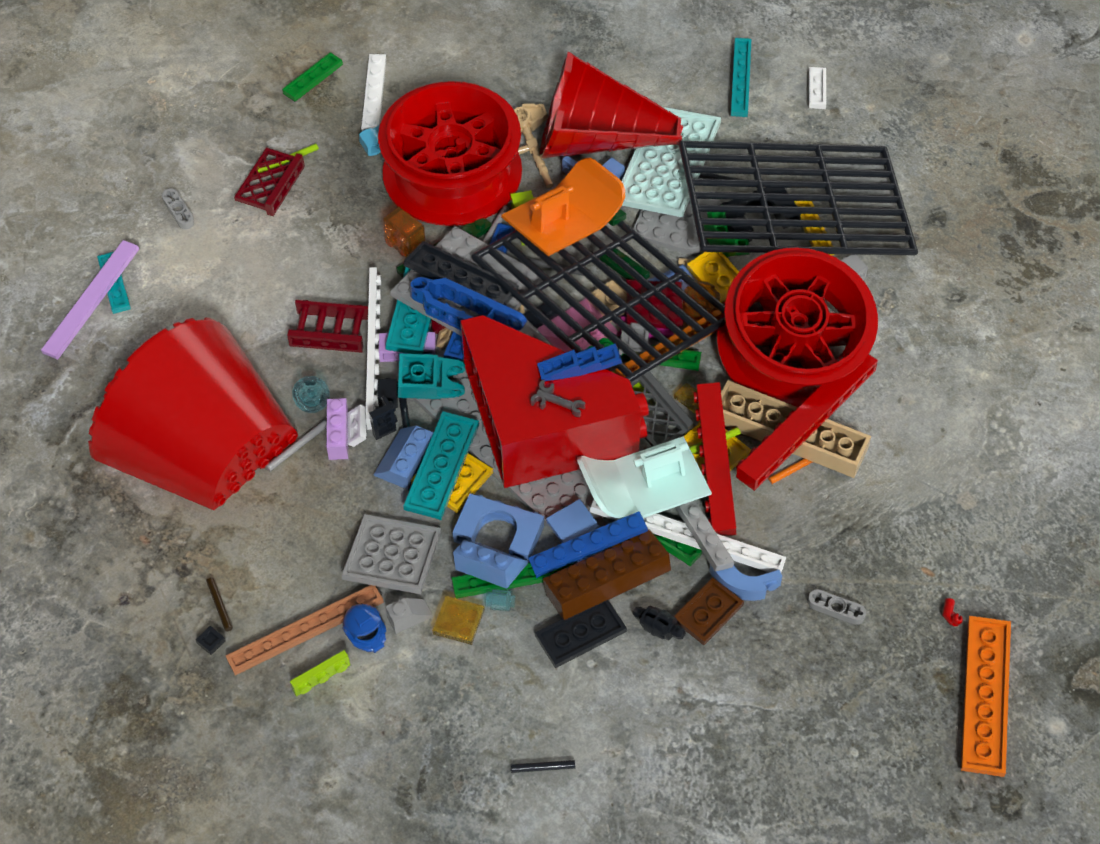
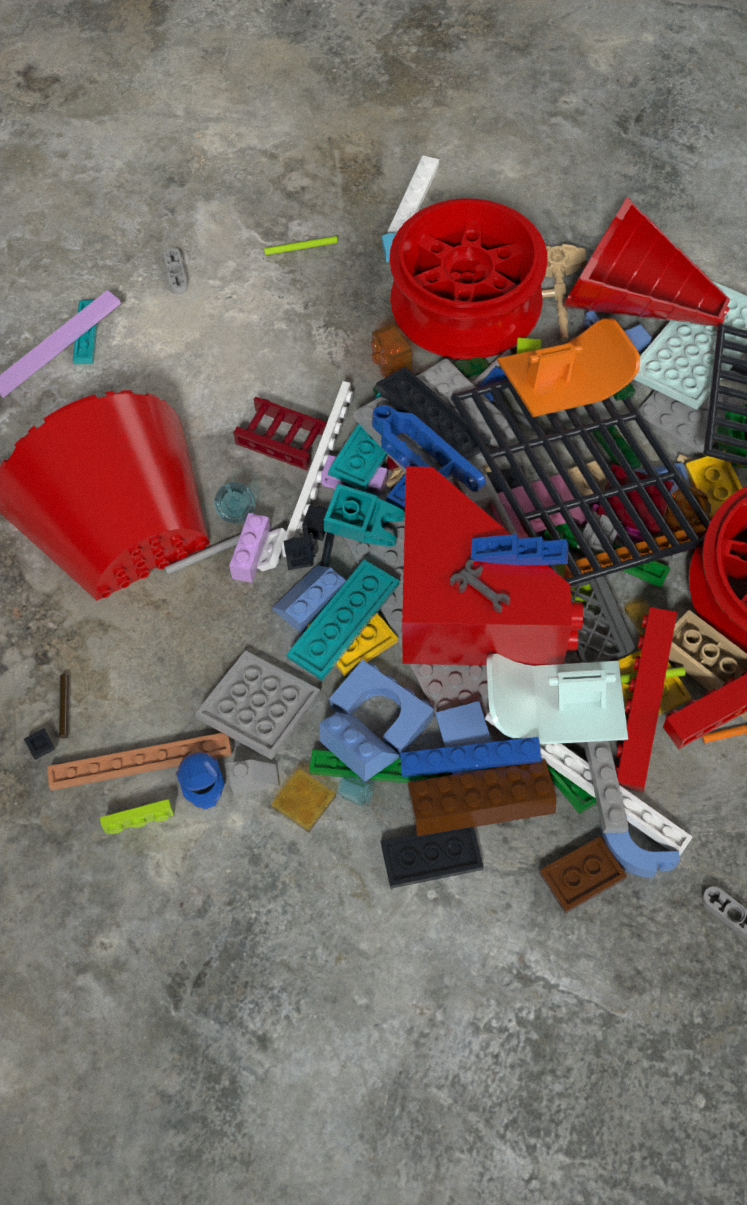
camera: 20 degrees right, 5 degrees up
(282, 184) = (287, 270): dark red fence -> none
(312, 77) = (357, 166): green plate -> none
(543, 766) = (338, 1001): black bar -> none
(659, 623) = (517, 876): black piece -> none

